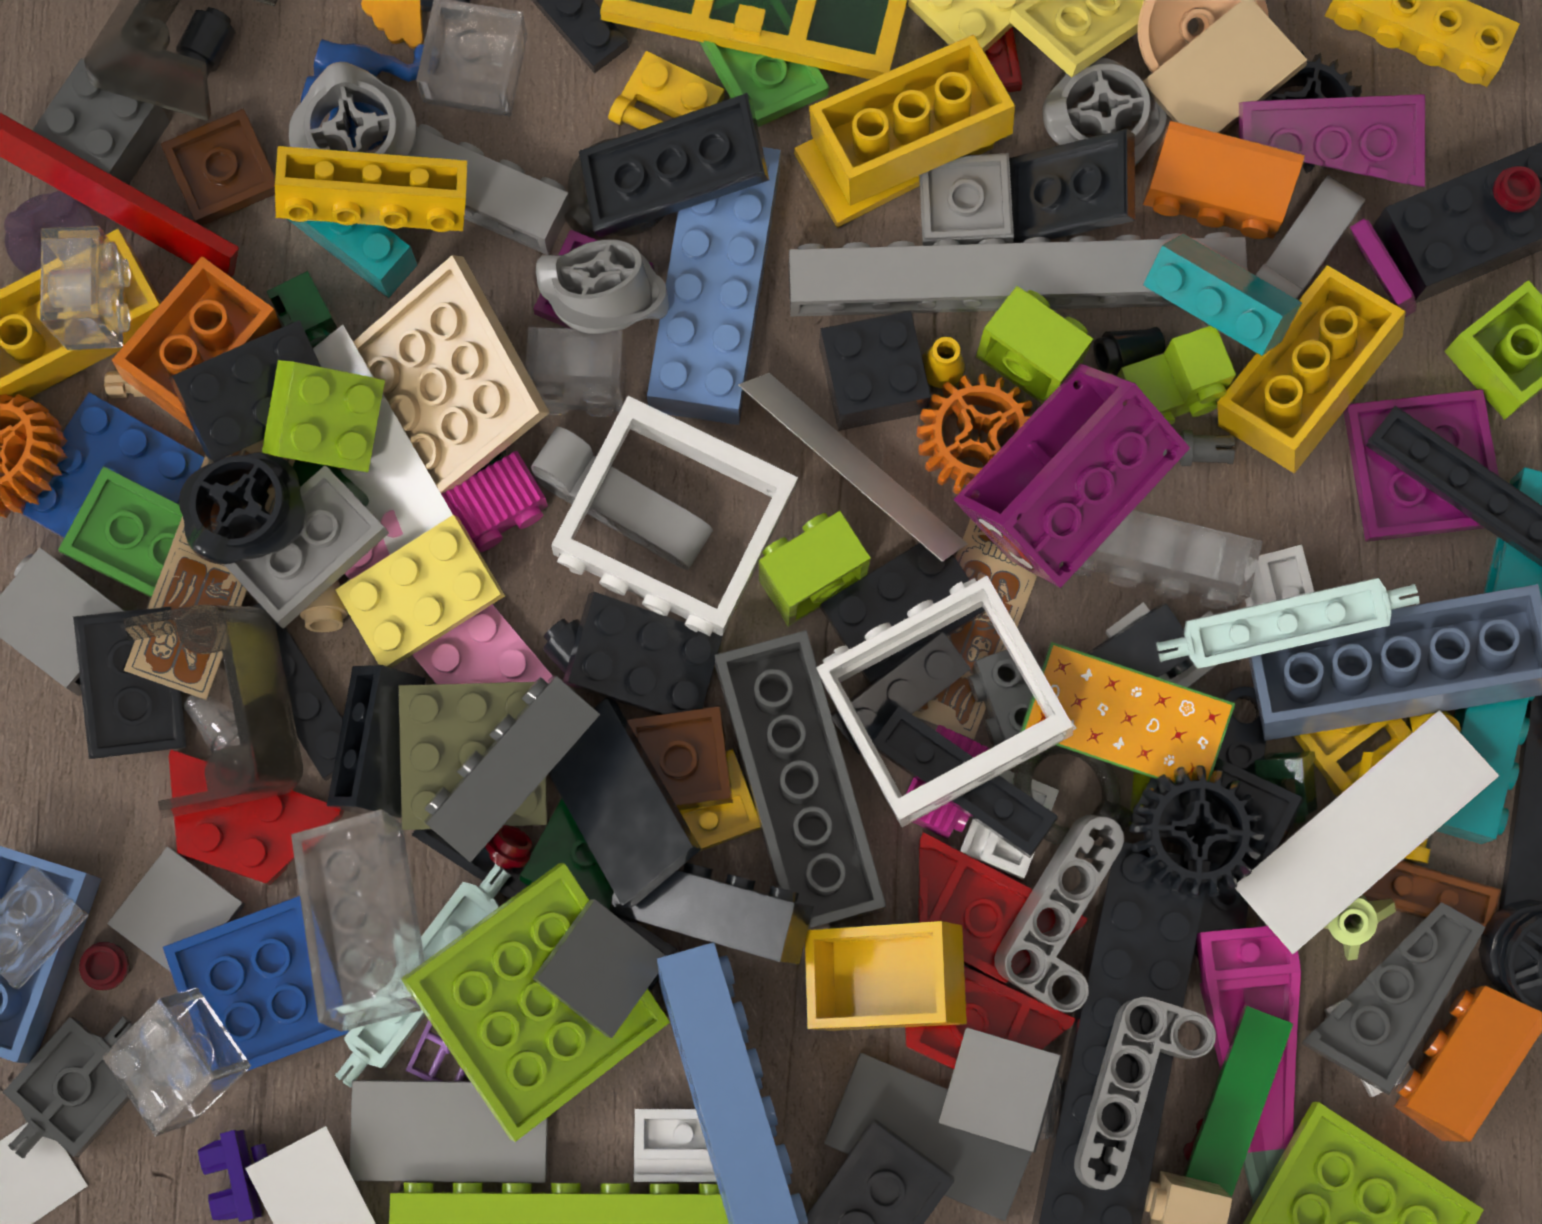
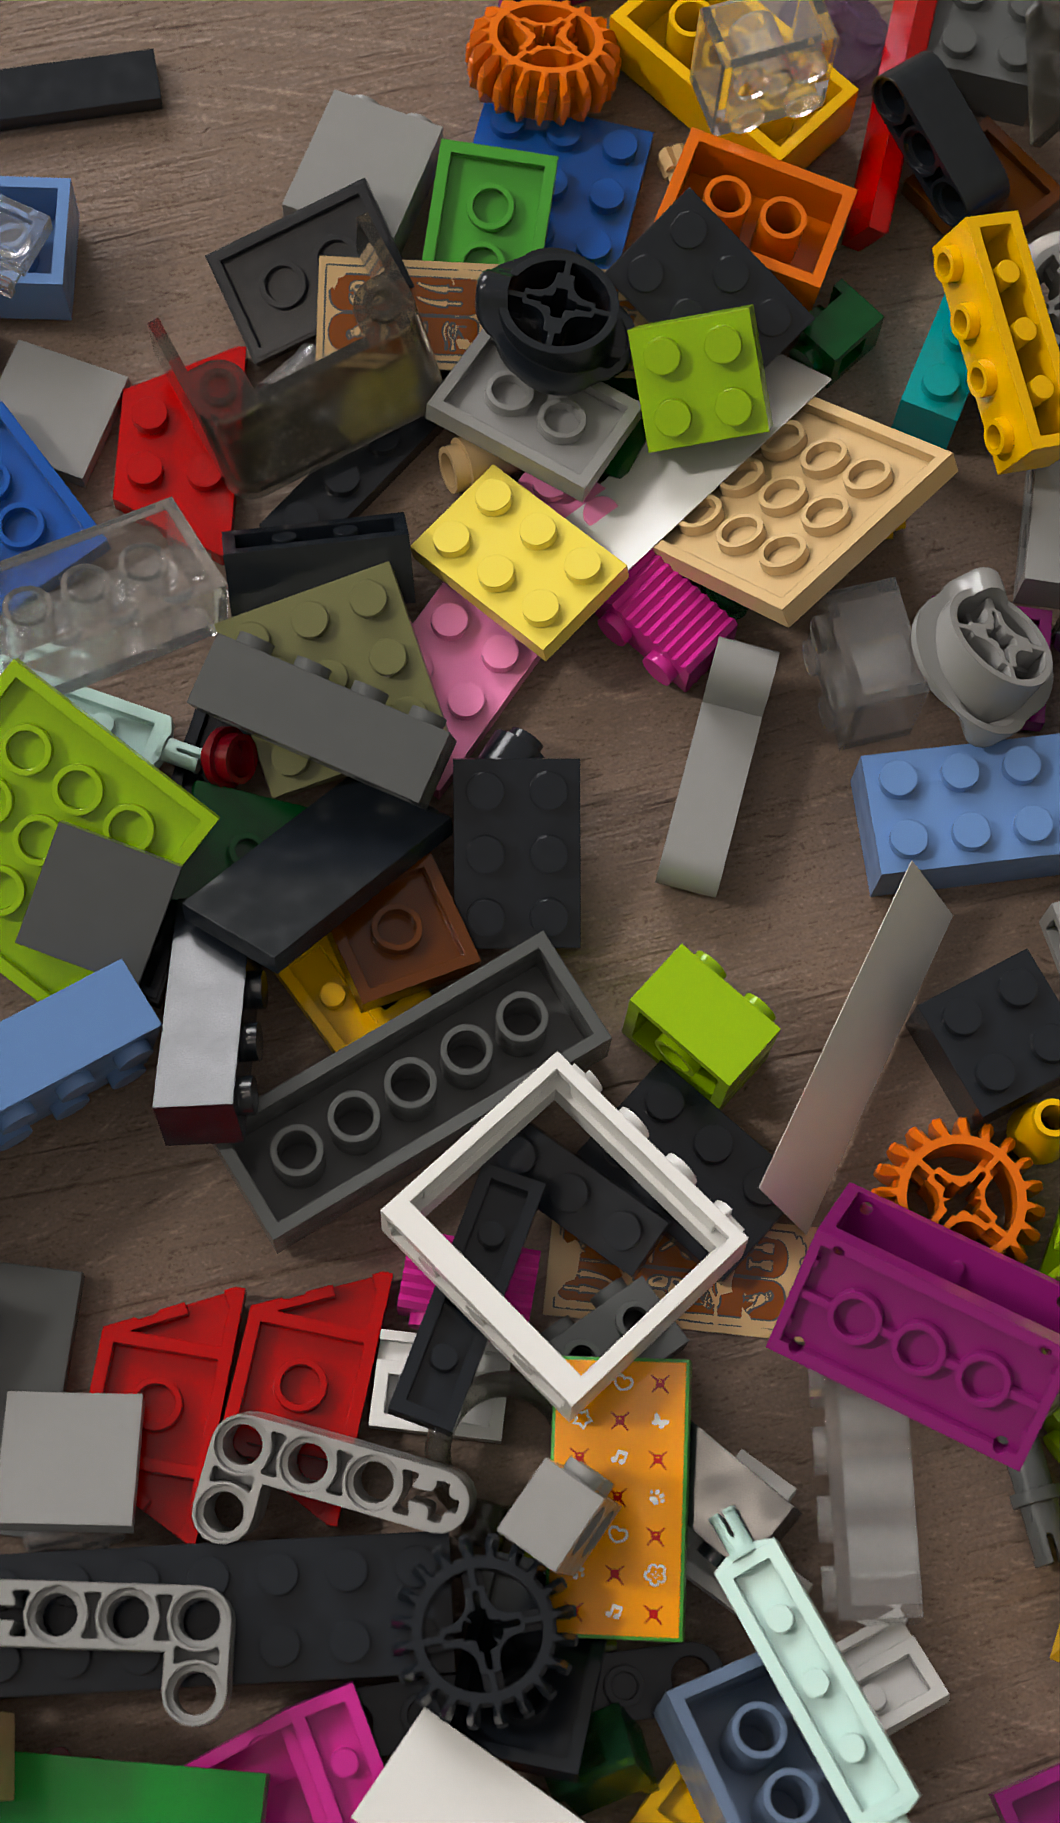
camera: 70 degrees right, 5 degrees down
(180, 183) = (940, 138): none -> black beam
(705, 450) = (784, 960): white window -> none
(885, 976) = (179, 1267): yellow piece -> none
(1141, 755) = (561, 1514): none -> light grey brick

